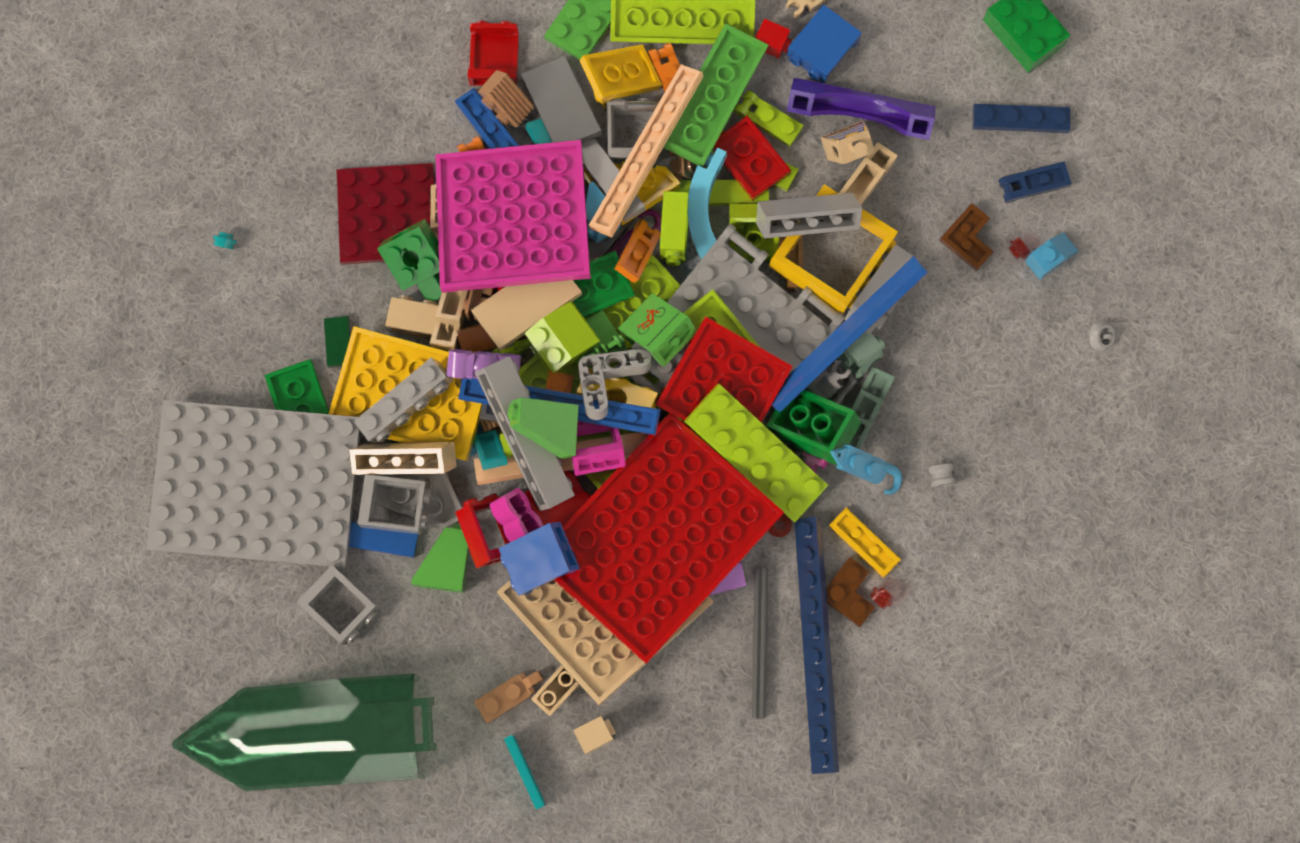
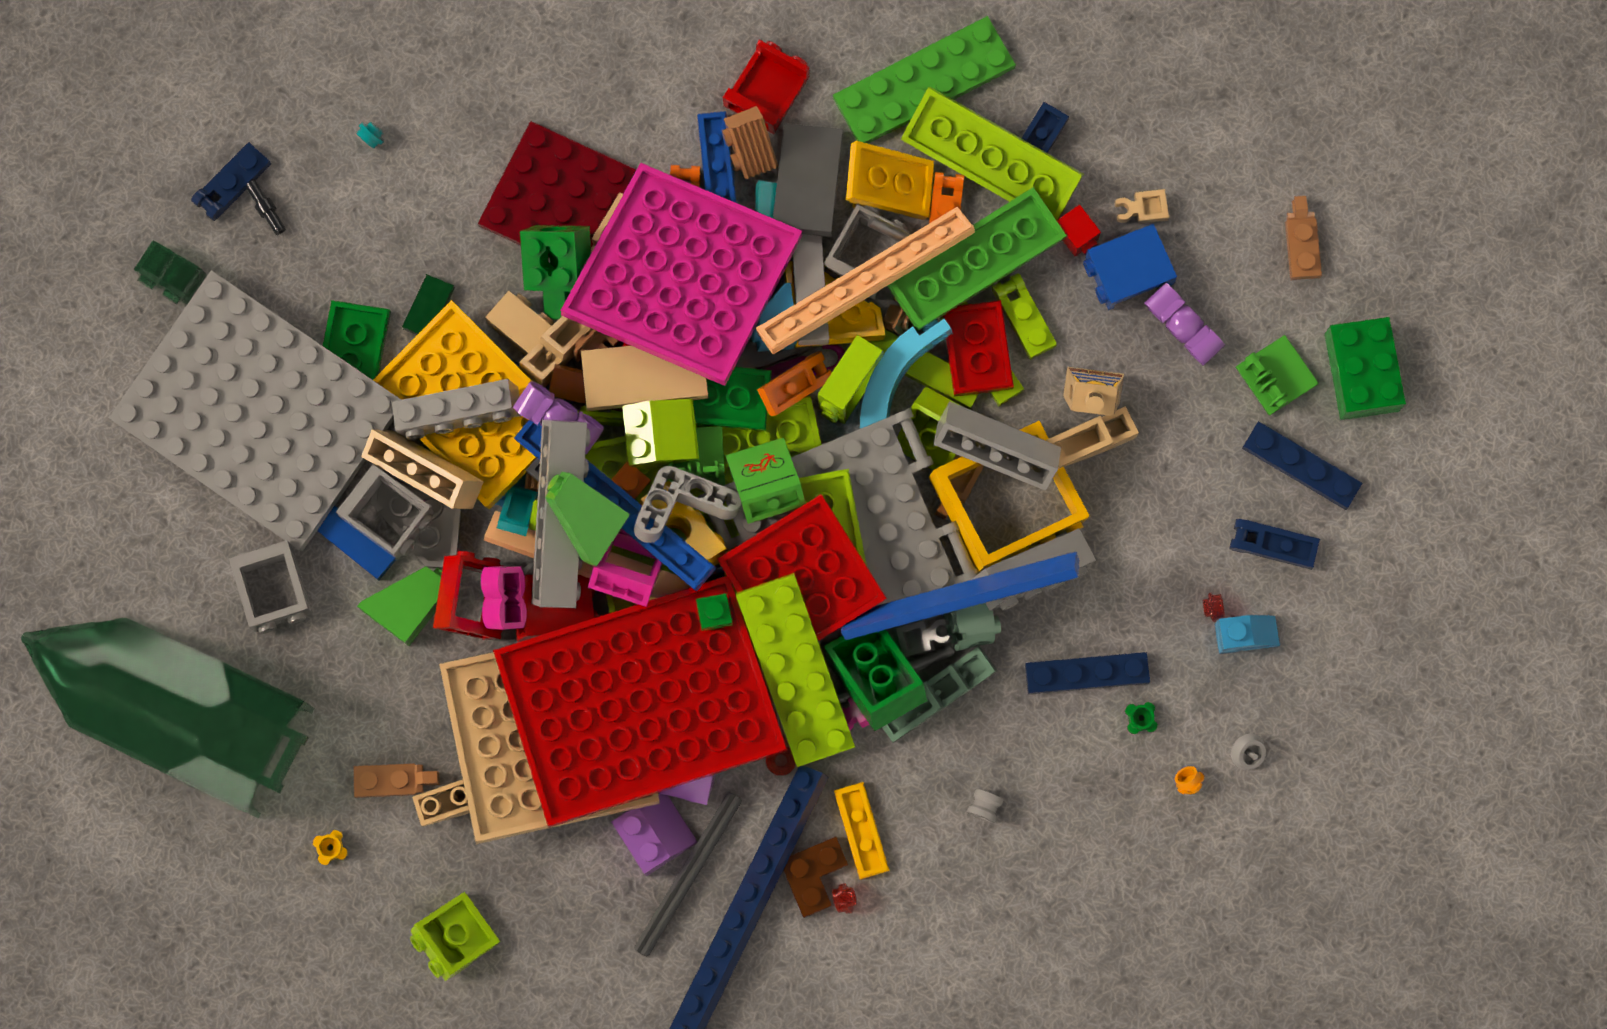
camera: 30 degrees right, 0 degrees up
(131, 419) = (169, 272): none -> clear green brick
(140, 329) = (231, 181): none -> dark blue plate
(176, 334) = (265, 207): none -> black bar
(482, 770) = (334, 839): none -> yellow plate
(525, 772) = (364, 869): teal tile -> none
(538, 558) = (500, 653): panel -> none
(595, 734) = (456, 871): tan brick -> none
(618, 783) = (453, 937): none -> lime plate
(675, 443) = (714, 612): none -> green plate
(720, 628) = (654, 834): none -> medium lavender slope
(823, 99) = (1171, 393): dark purple arch -> none
(866, 466) = (905, 750): dark azure plate -> none
(884, 63) = (1184, 324): none -> medium lavender piece
(957, 343) = (1087, 673): none -> dark blue plate
(962, 237) = (1158, 563): reddish brown plate -> none
(967, 65) = (1276, 375): none -> bright green hinge
(1012, 361) = (1147, 711): none -> green plate
(1072, 378) = (1189, 780): none -> light orange plate

